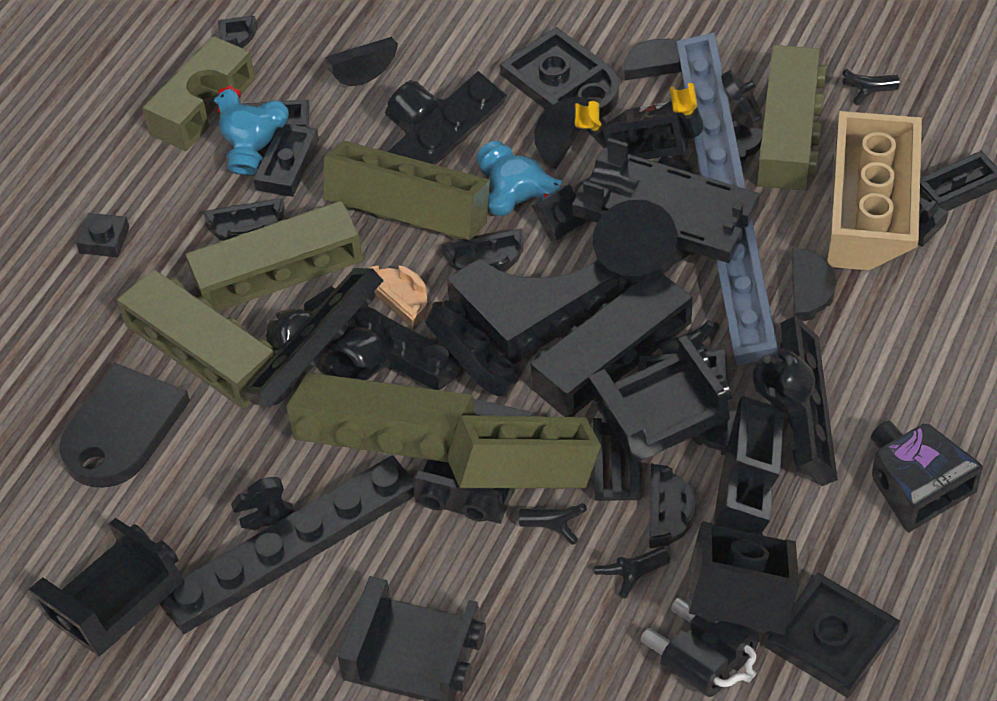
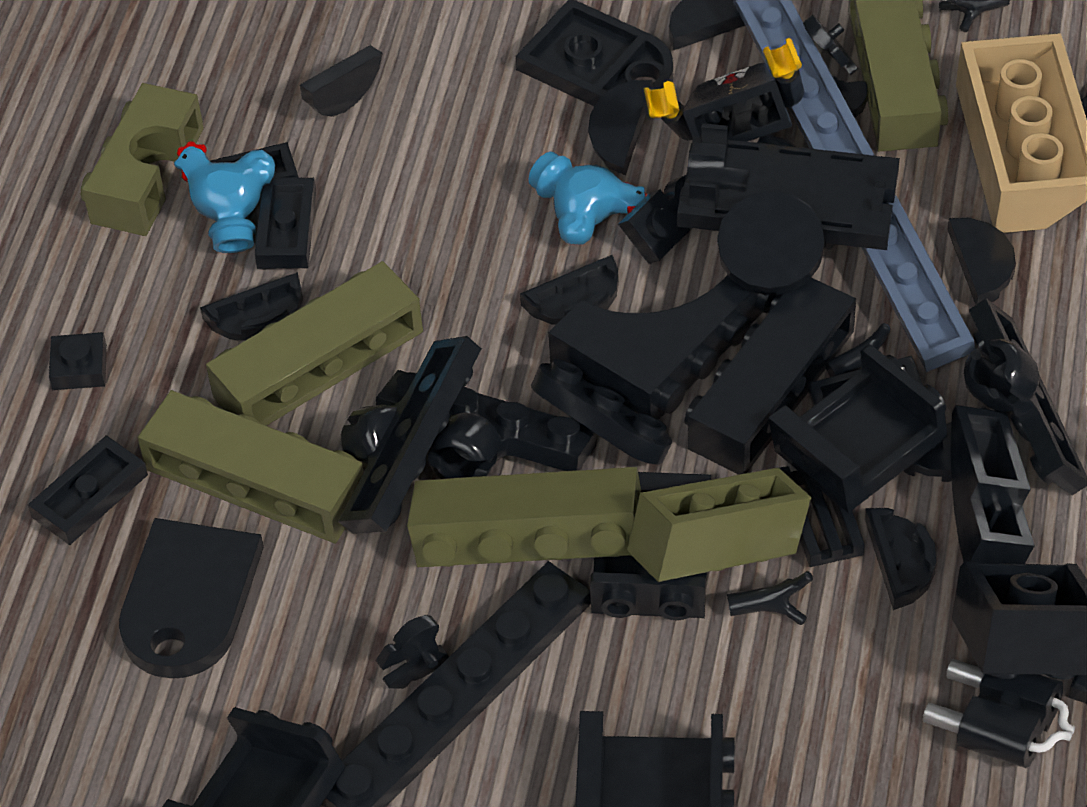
camera: 15 degrees left, 0 degrees up
(74, 332) = (87, 490): none -> black plate
(237, 30) = (160, 69): black tile -> none
(403, 293) = (497, 365): light nougat tile -> none
(406, 190) = (456, 233): olive brick -> none
(439, 125) = (458, 149): black plate -> none
(633, 568) = (886, 636): black bar -> none

